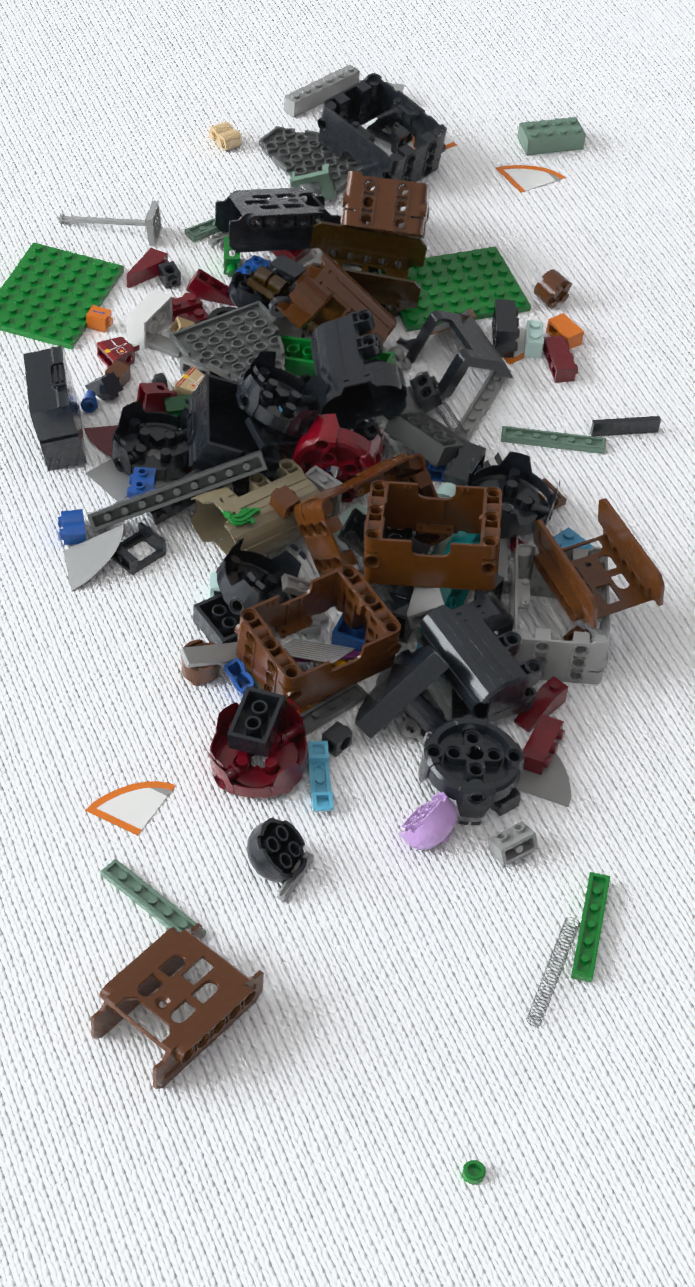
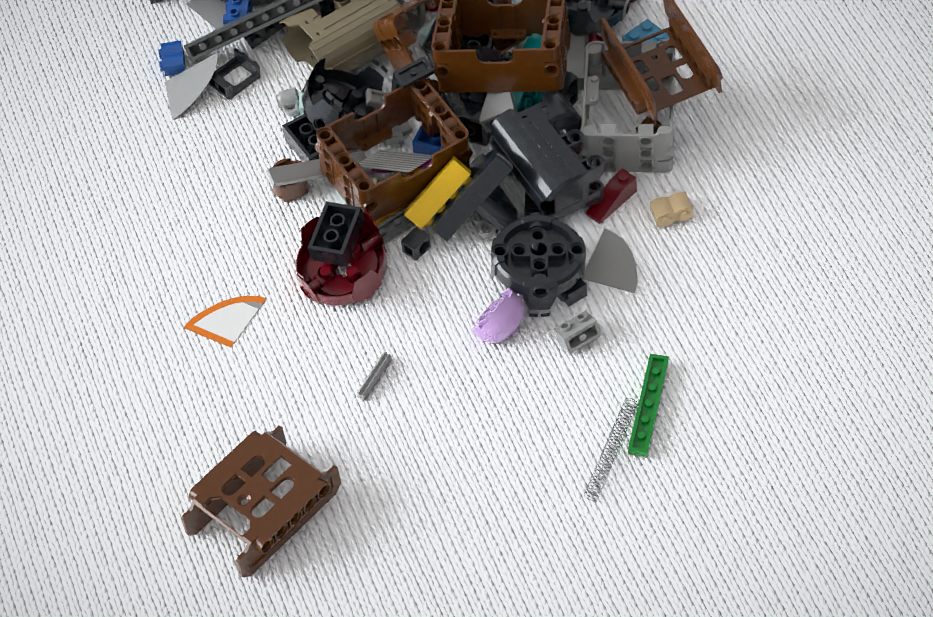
camera: 10 degrees right, 5 degrees up
(147, 897) = (238, 404): sand green tile -> none
(196, 579) = (288, 99): none -> light grey piece
(239, 676) = (325, 190): blue brick -> none
(243, 517) = (327, 36): green piece -> none
(275, 850) = (354, 352): black cylinder -> none
(283, 501) = (364, 17): reddish brown brick -> none
(319, 776) = (399, 280): medium azure slope -> none
(340, 560) = (411, 73): none -> black window
(363, 687) = (437, 192): none -> yellow brick
(542, 744) = (610, 235): dark red brick -> none
(604, 722) = (671, 209): none -> tan brick

